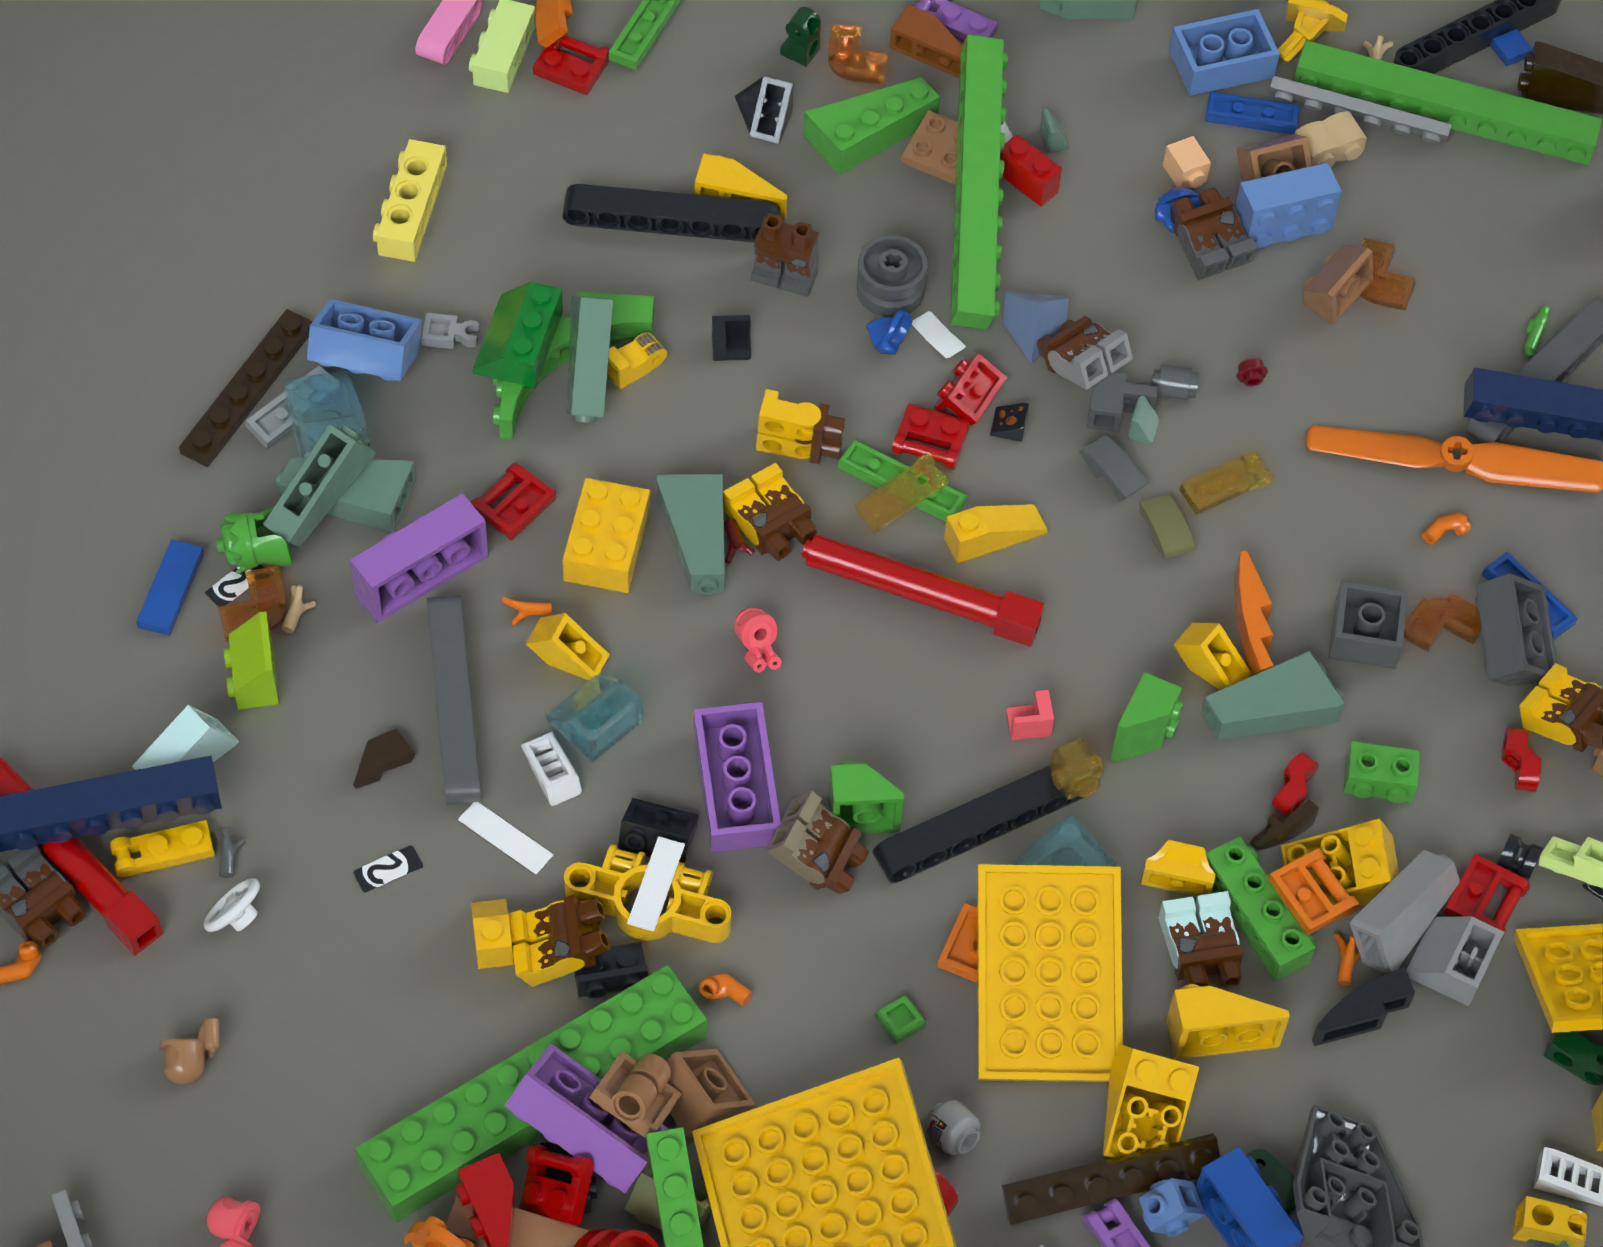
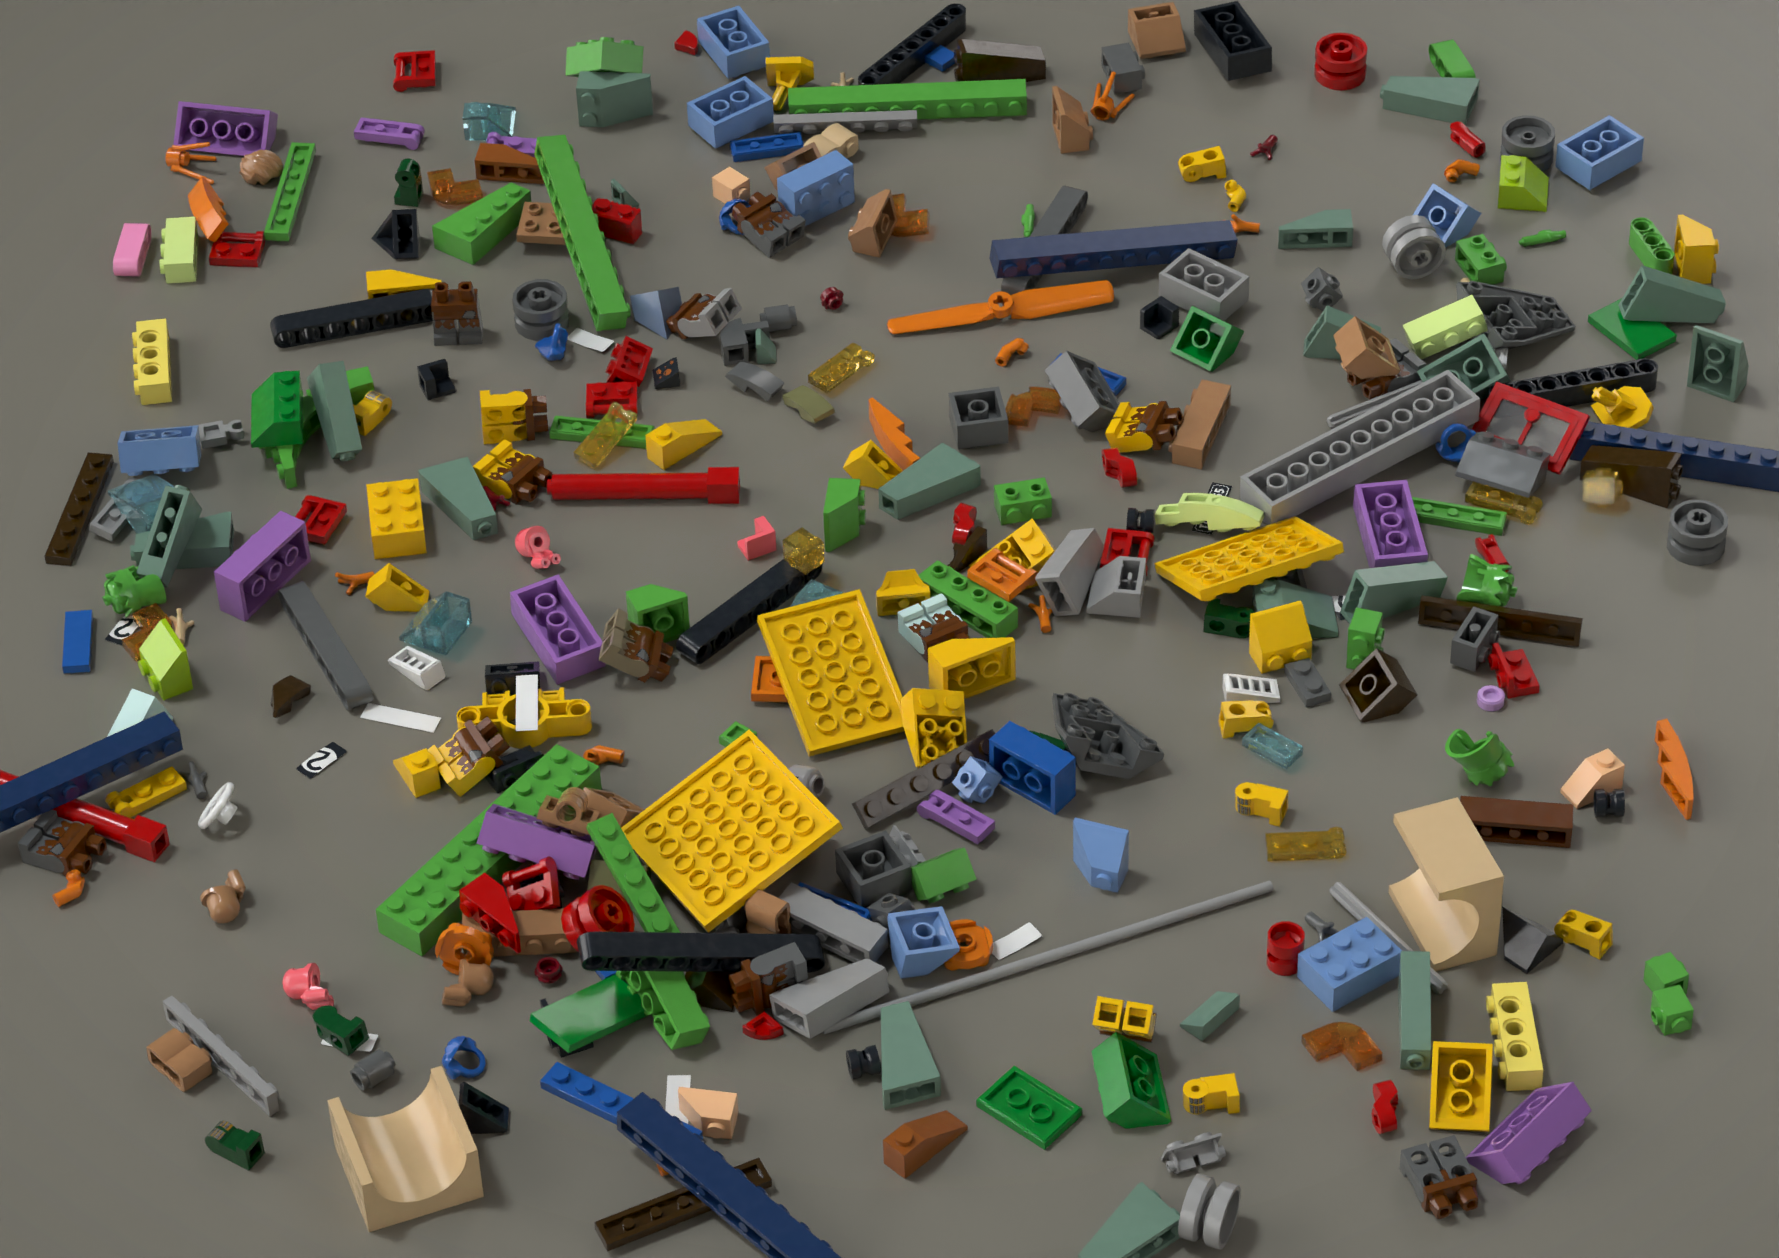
camera: 15 degrees left, 15 degrees down
(1366, 1007) = (1067, 635): black slope -> none

